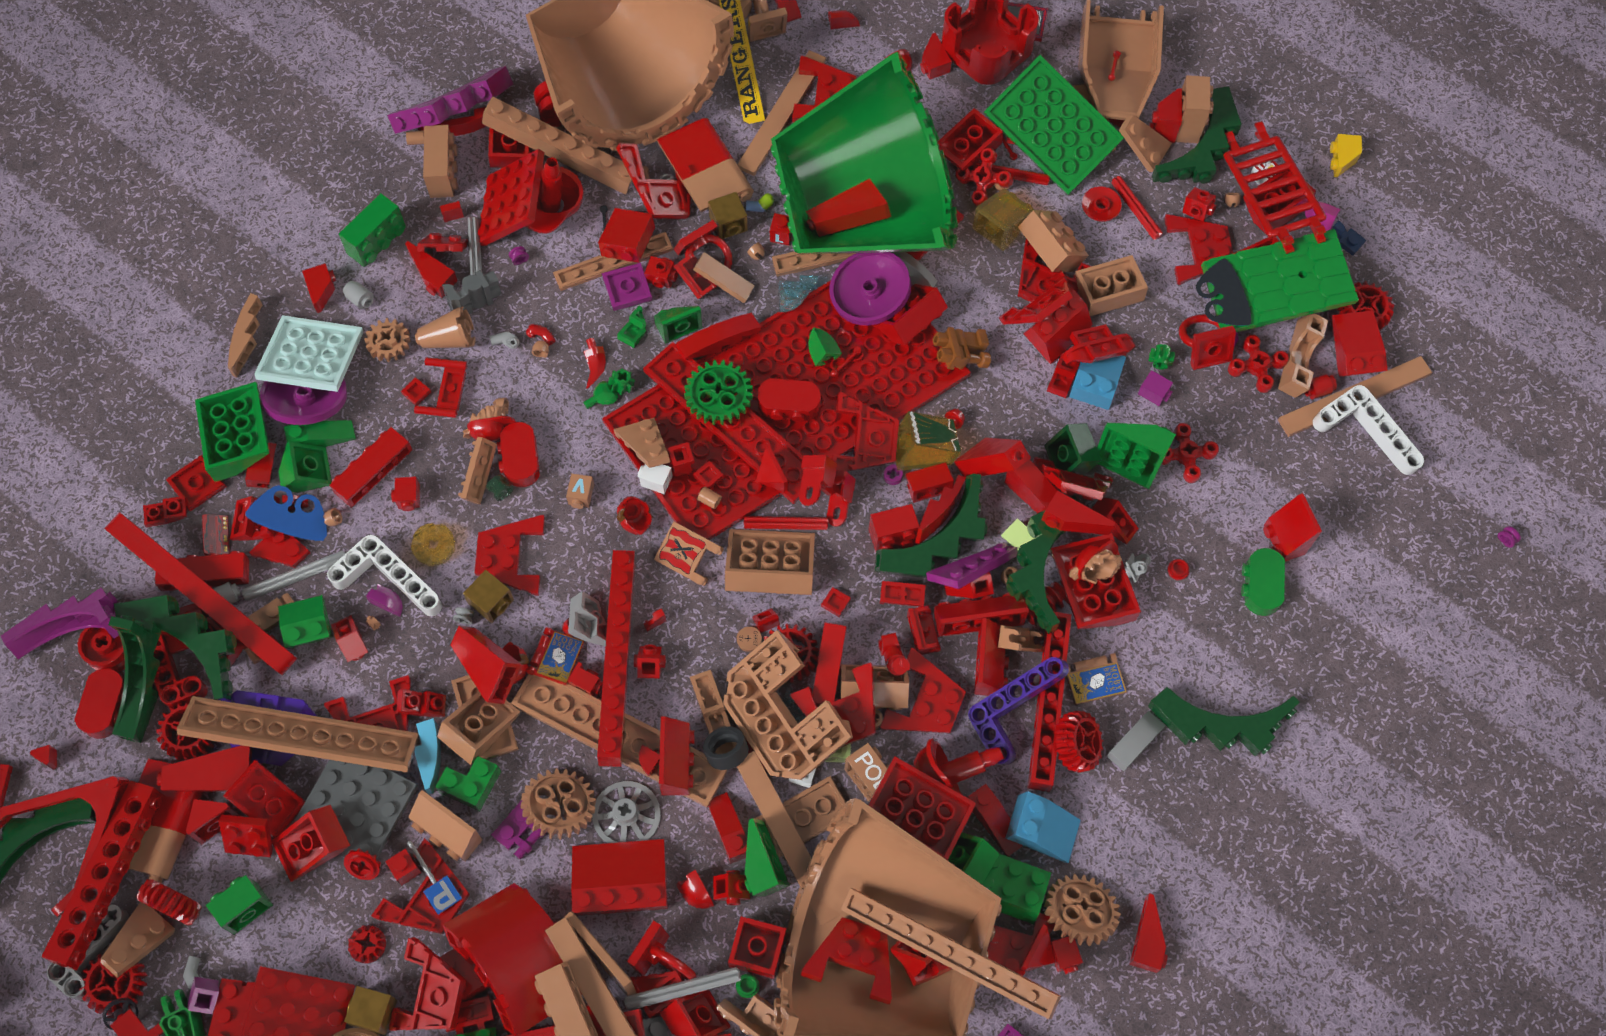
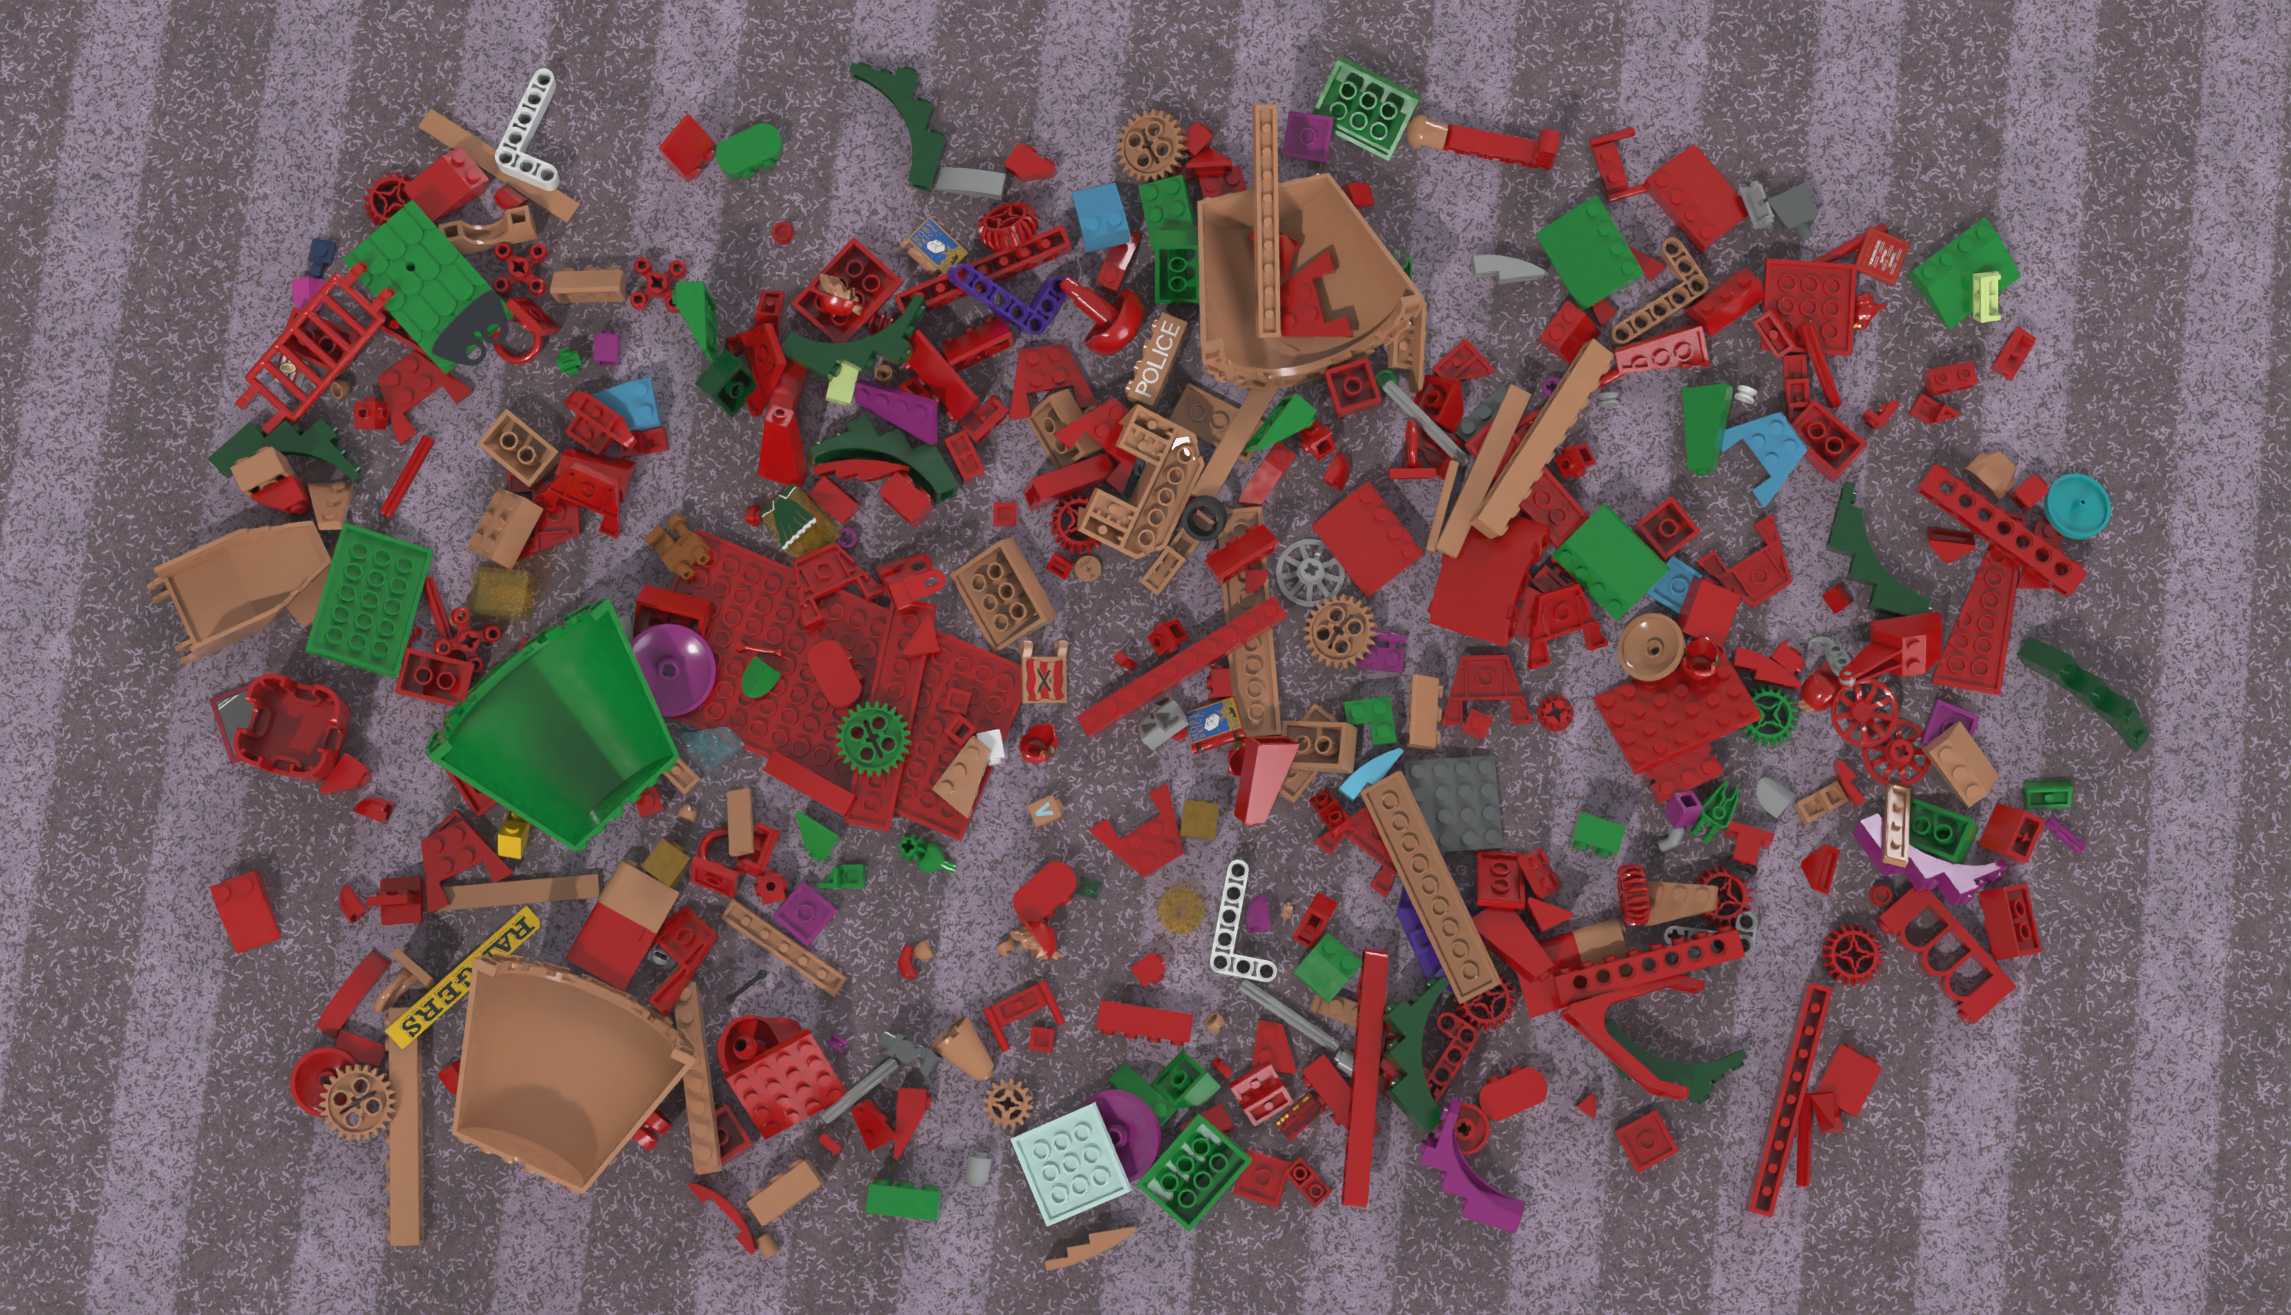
camera: 120 degrees left, 15 degrees up
(141, 667) = (1476, 1065): dark green arch -> none
(278, 518) = (1250, 1065): blue piece -> none
(310, 842) = (1509, 814): red slope -> none
(320, 285) = (991, 1214): red slope -> none
(353, 864) = (1497, 760): red gear -> none
(370, 1010) = (1604, 666): pearl gold head -> none
(441, 893) = (1476, 676): piece -> none
(453, 102) = (737, 1230): magenta arch -> none
(463, 615) = (1229, 833): light grey bush -> none
(478, 470) = (1086, 917): nougat plate -> none
(505, 338) = (932, 992): light grey arm -> none
(596, 360) = (902, 890): red bar -> none
(626, 235) = (752, 947): red brick -> none
(709, 497) = (980, 685): nougat hinge -> none
(761, 205) = (629, 842): arm -> none
(779, 522) = (960, 612): red axle -> none
(823, 43) = (399, 900): none -> red bracket
(848, 210) = (592, 744): red slope -> none
(894, 658) = (1031, 424): red piece -> none
(922, 806) = (1164, 312): red slope -> none
(1019, 639) = (946, 327): nougat hinge -> none
(1073, 516) = (807, 343): red slope -> none
(1101, 197) = (416, 505): red dish -> none
(1116, 55) = (231, 594): red hinge -> none
(1126, 795) = (1029, 166): none -> red slope
(1137, 565) = (807, 265): light grey hinge -> none
(1149, 941) = (1142, 80): red slope -> none
(1217, 401) = (589, 285): none -> nougat slope
(1346, 152) = (218, 306): yellow slope -> none

